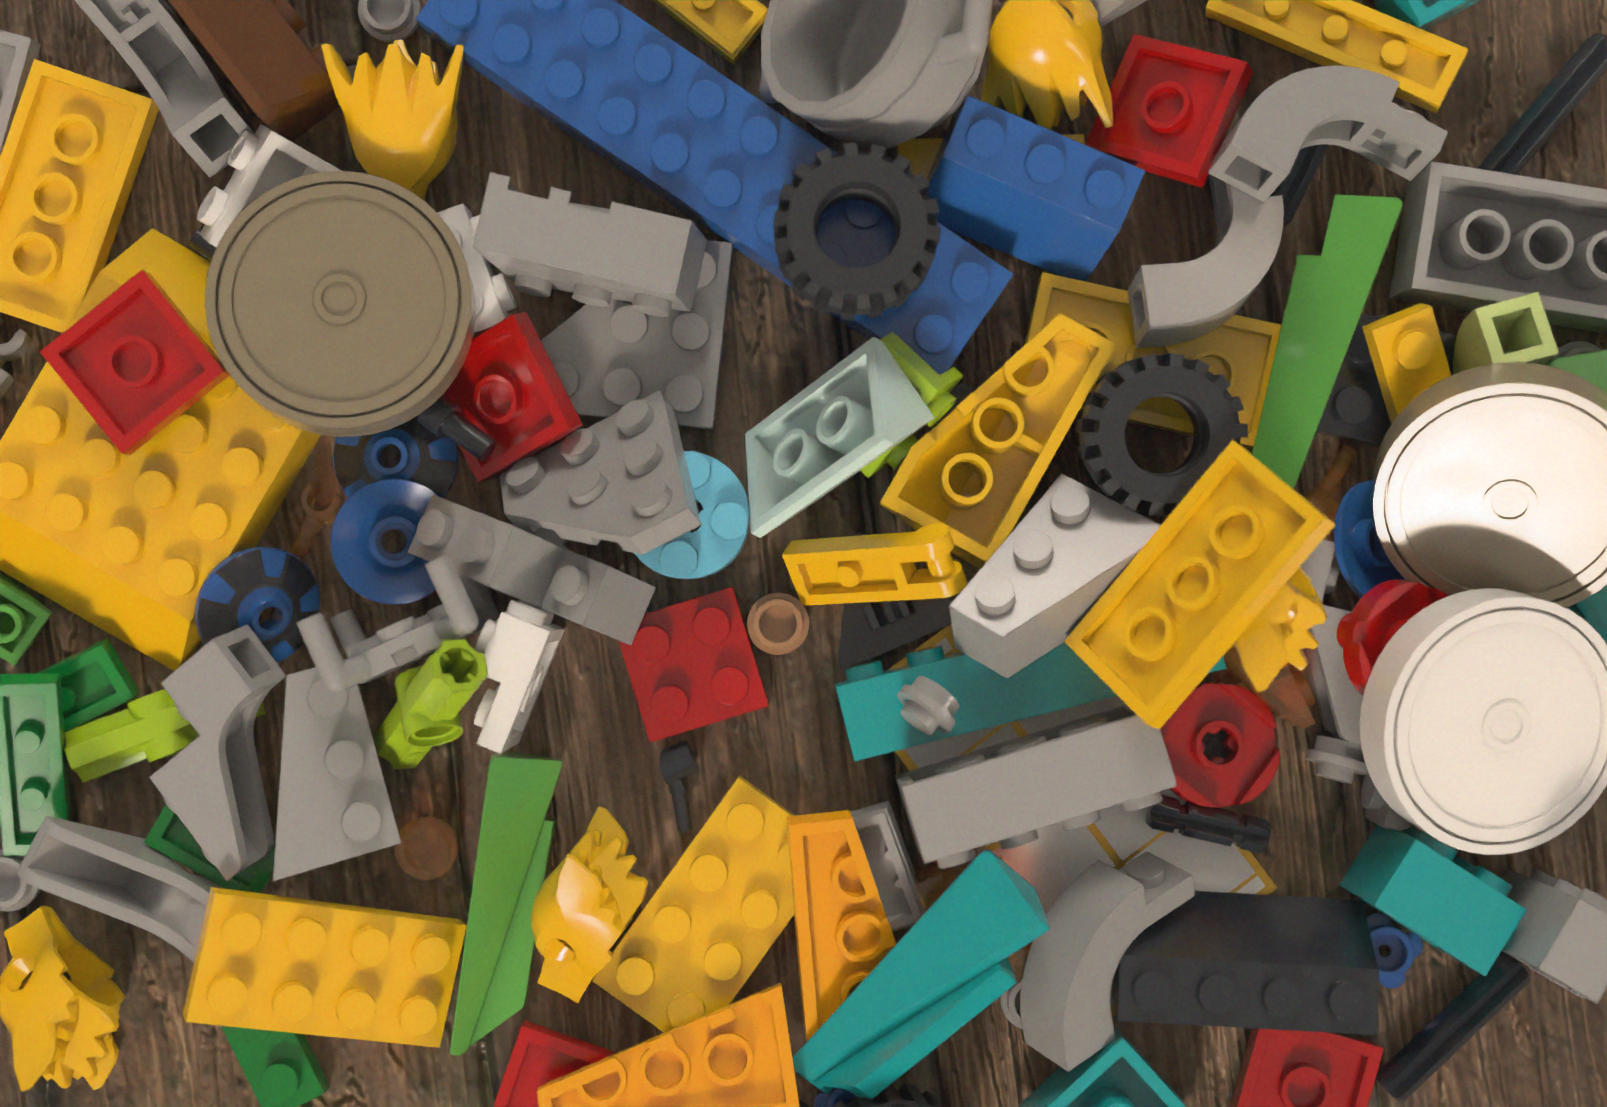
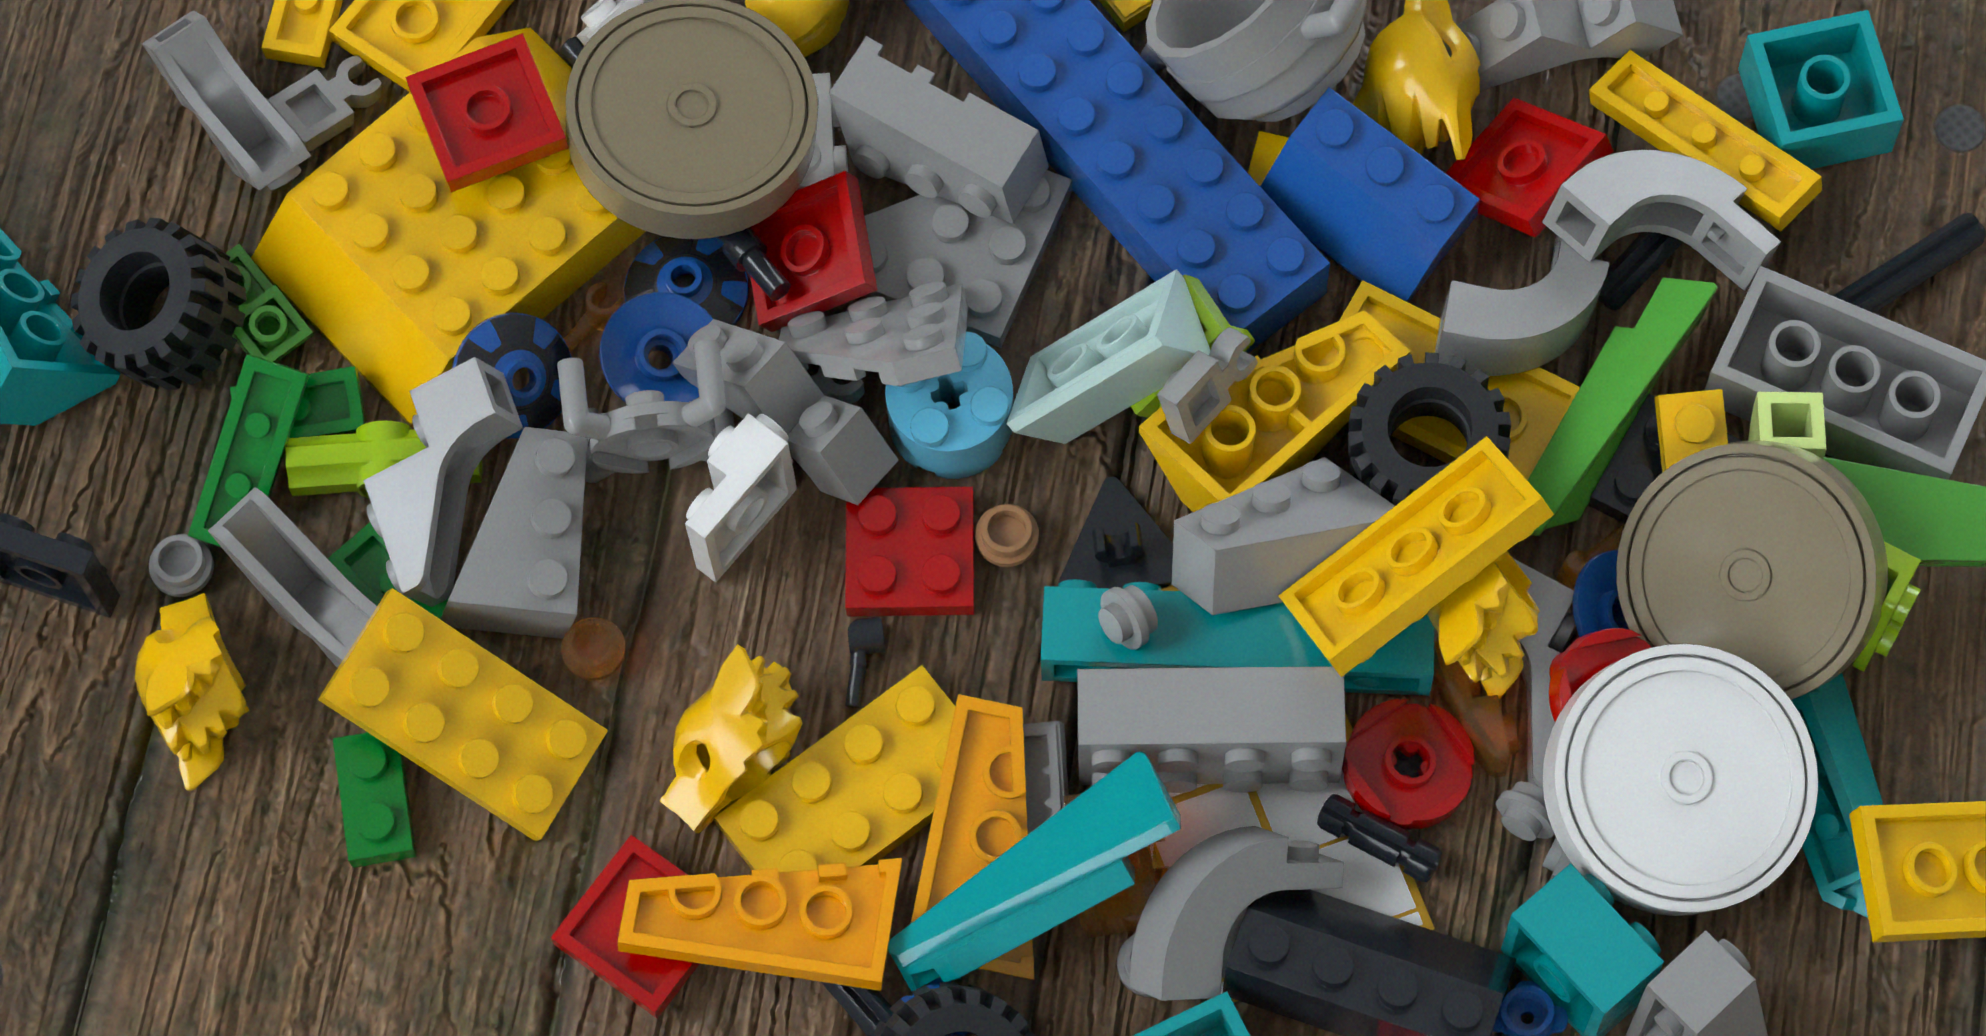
camera: 20 degrees right, 20 degrees down
(430, 704) = (649, 489): lime piece -> none
(507, 875) = (669, 676): bright green wedge -> none
(862, 177) = (1195, 126): black tyre -> none
(875, 567) = (1112, 490): yellow plate -> none
(930, 460) = (1201, 386): none -> light grey plate

